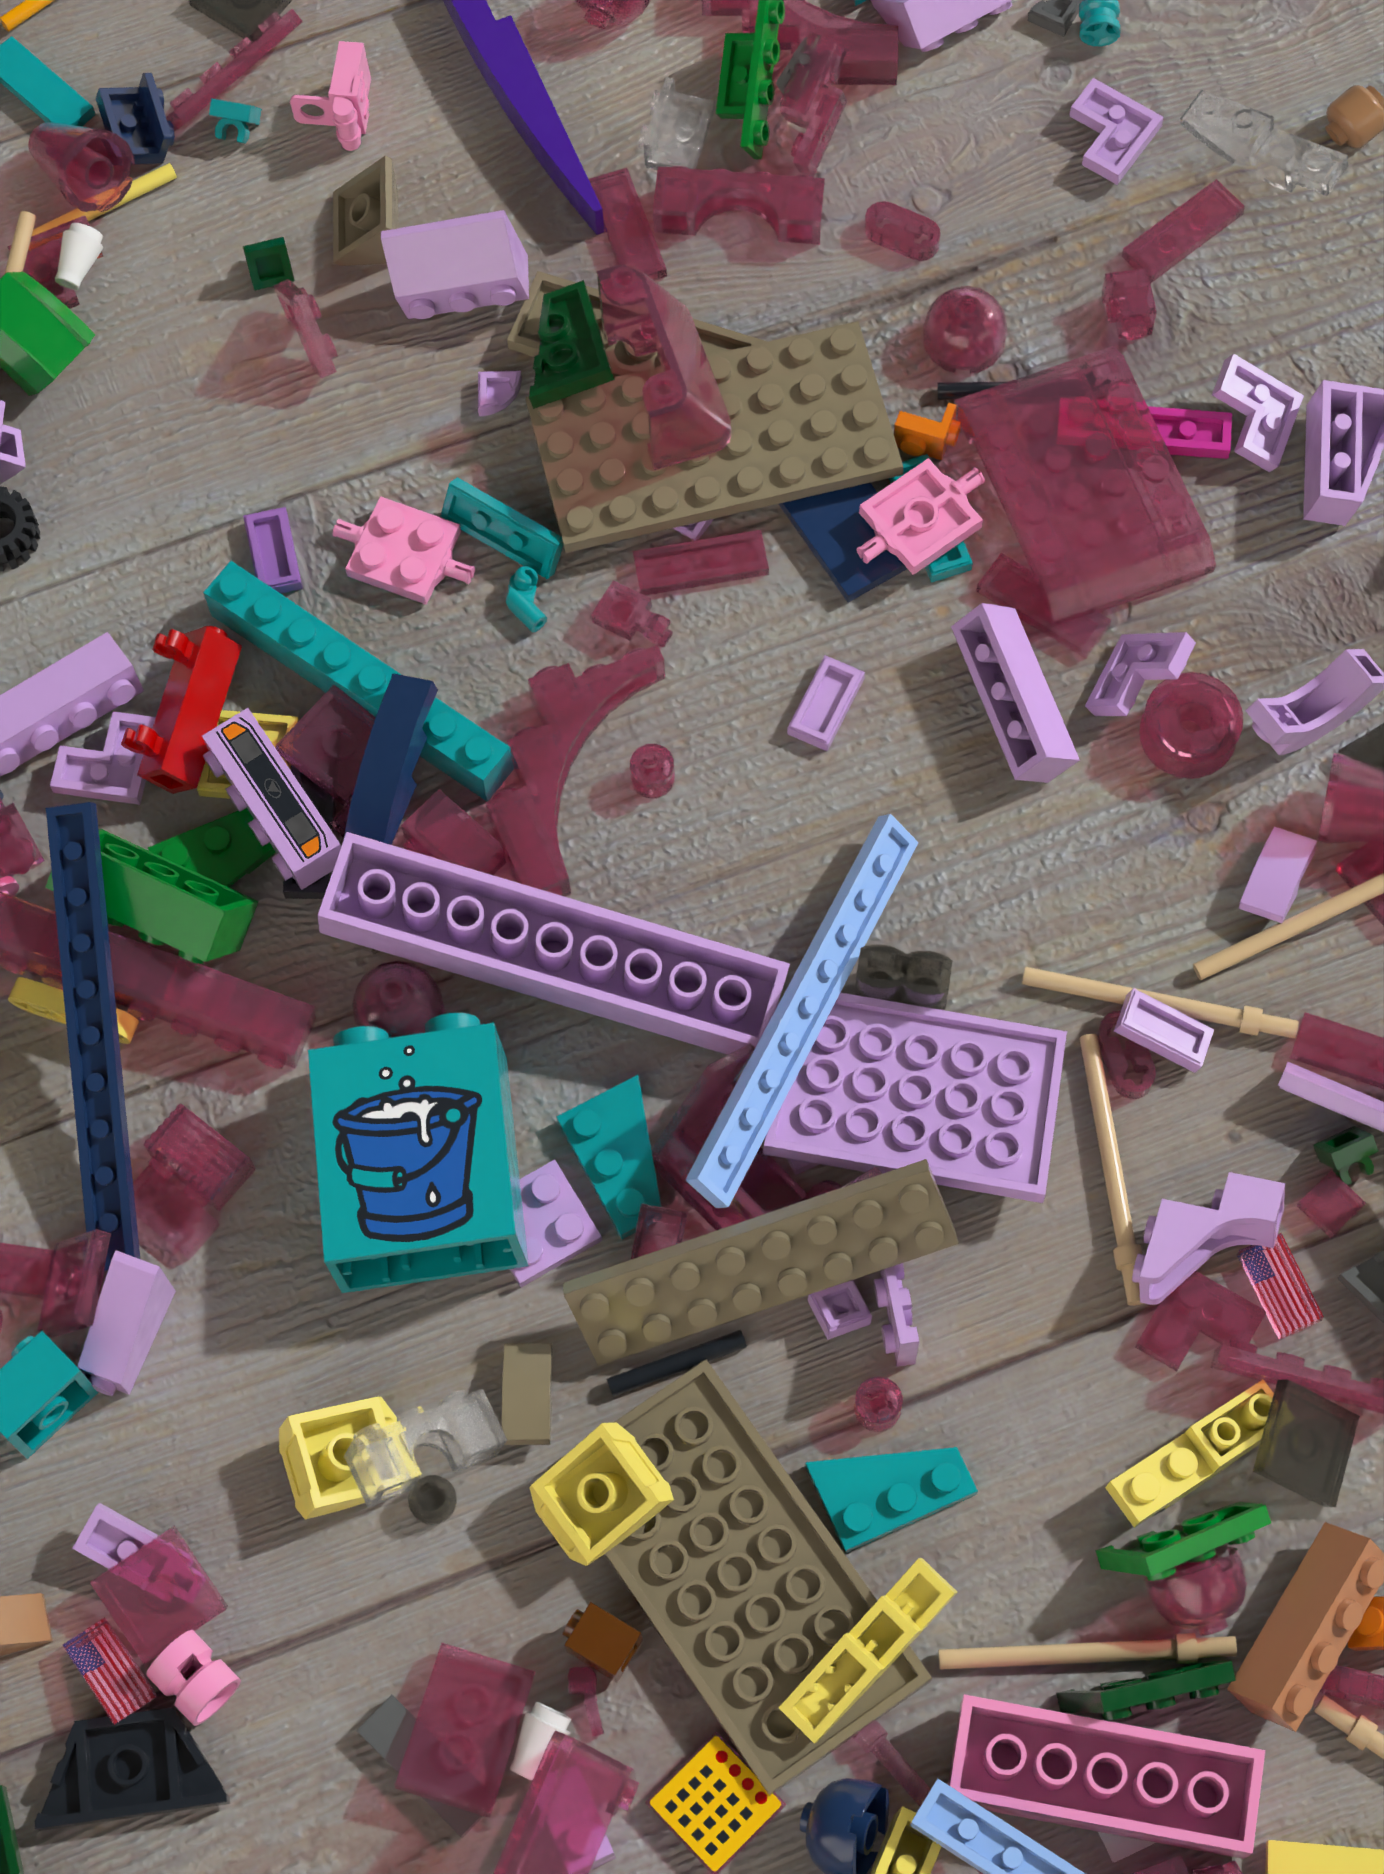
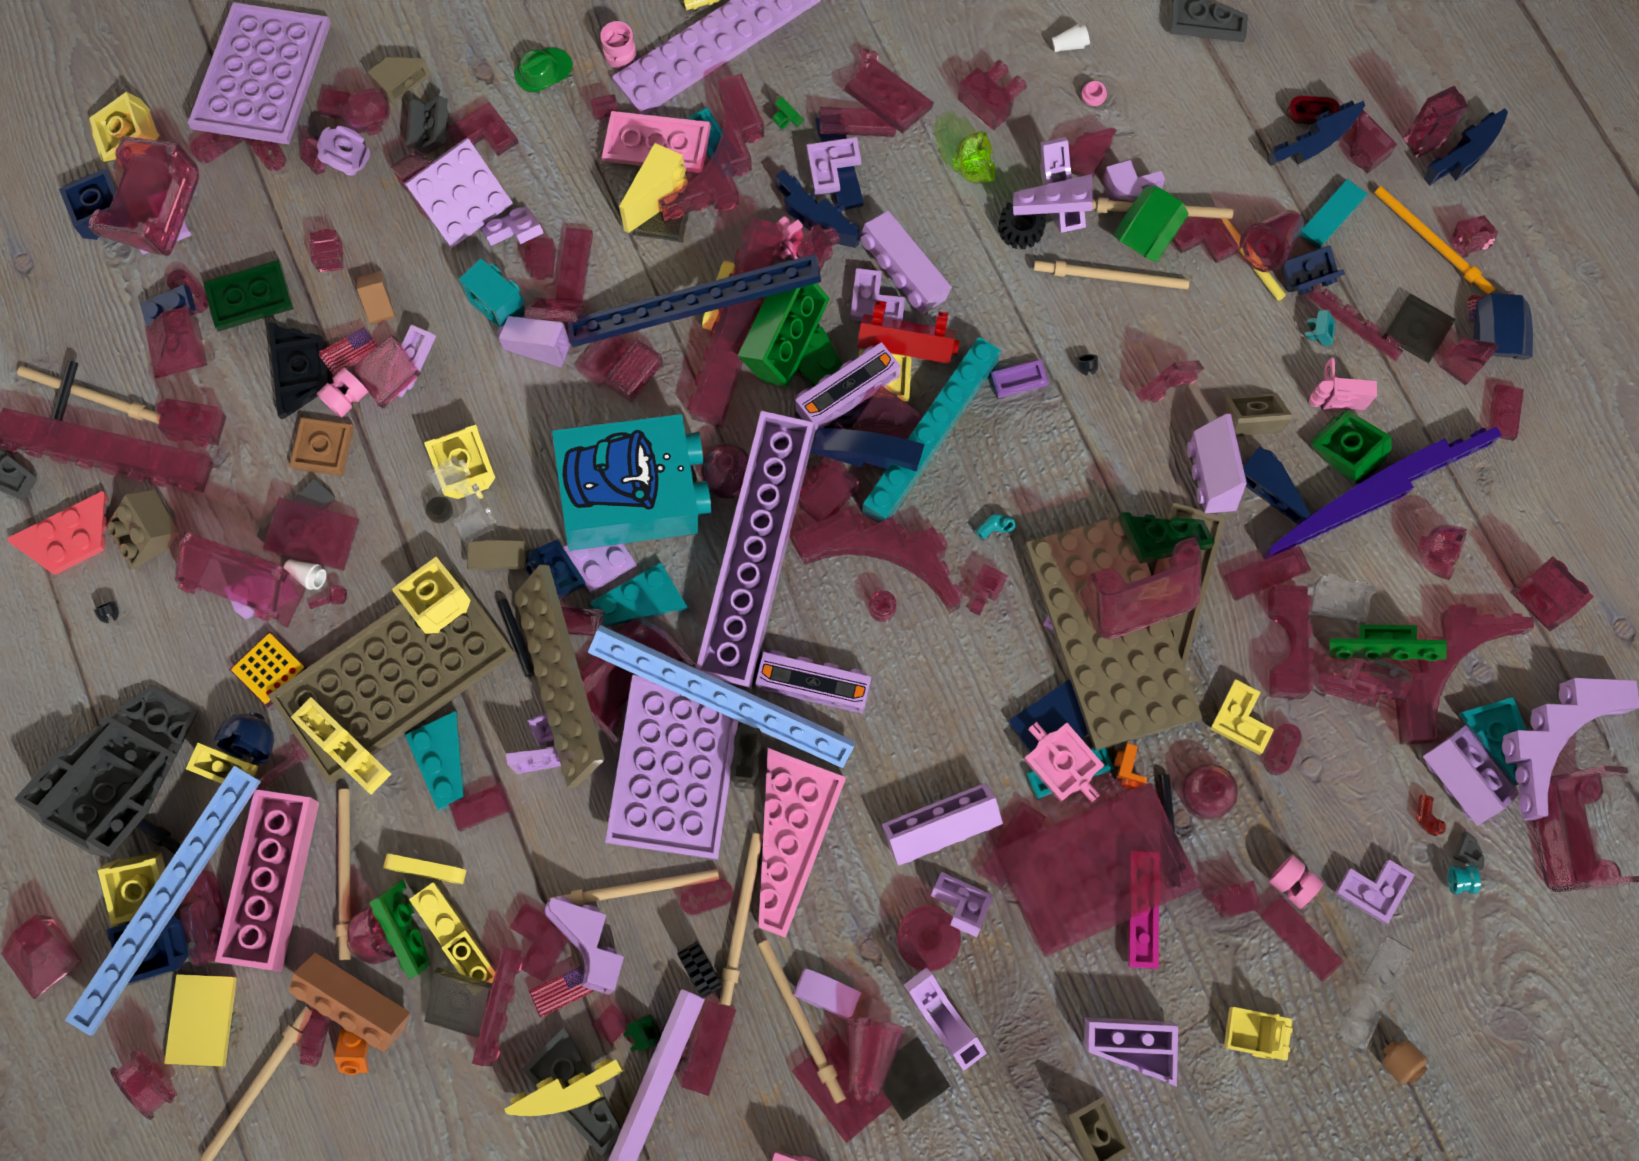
camera: 85 degrees right, 5 degrees up
(77, 255) = (1206, 244): white cone -> none
(86, 474) = (1061, 269): none -> tan bar
(259, 447) = (1087, 363): none -> black hinge
(268, 263) = (1216, 357): dark green tile -> none
(291, 1722) = (321, 446): none -> medium nougat tile
(403, 550) = (1024, 452): bright pink plate -> none
(430, 95) = (1352, 445): none -> green slope
(497, 390) = (1140, 500): lavender tile -> none
(501, 189) = (1271, 482): none -> dark blue slope
(502, 528) = (1040, 507): teal tile -> none
(541, 1296) = (564, 573): none -> dark blue bracket
(601, 1641) = (354, 601): reddish brown brick -> none
(701, 562) = (1028, 630): clear pink tile -> none
(778, 872) = (813, 682): none -> brick
(826, 703) = (935, 710): lavender tile -> none
(856, 287) = (1234, 719): none -> light yellow plate
(874, 1413) = (494, 753): clear pink wheel -> none
(973, 1420) = (480, 807): none -> clear pink plate
(1008, 60) = (1426, 819): none -> clear red arm
(1010, 915) = (796, 818): none -> bright pink wing
(1081, 1509) = (424, 869): none -> light yellow beam
(1105, 223) = (1286, 877): none -> bright pink wheel
(1156, 1692) = (312, 894): dark green wing -> none
(1164, 1030) = (719, 919): lavender tile -> none
(1247, 1056) = (699, 969): none -> black tyre
(1268, 407) = (1161, 994): lavender plate -> none
(1322, 292) = (1258, 1033): none -> light yellow piece

